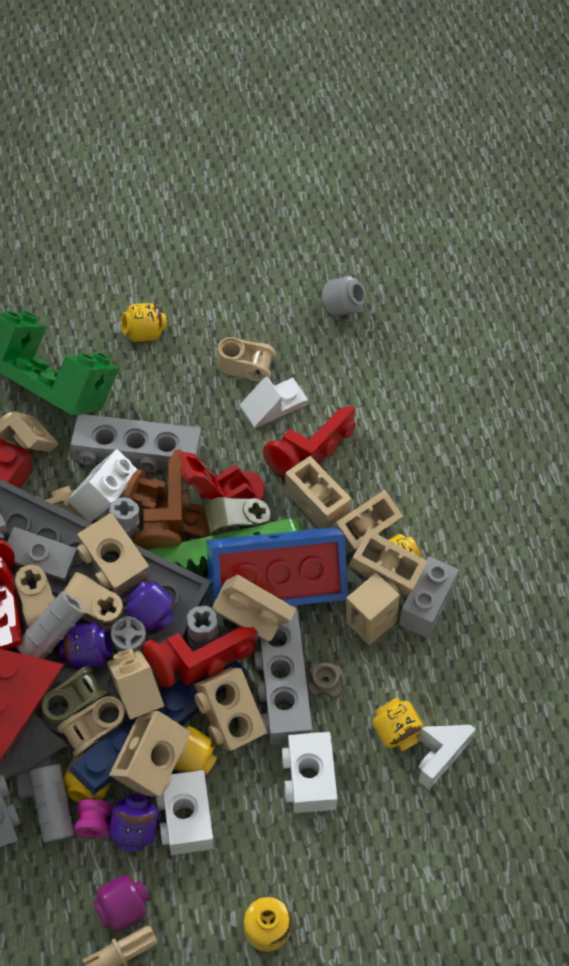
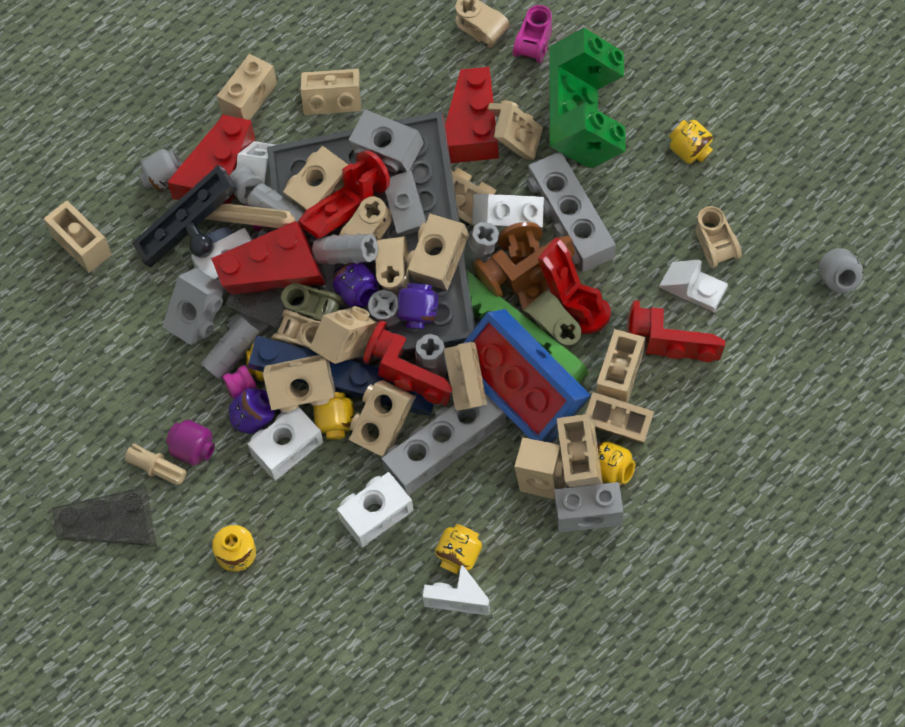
camera: 65 degrees right, 5 degrees up
(328, 671) = (464, 466): dark tan plate -> none

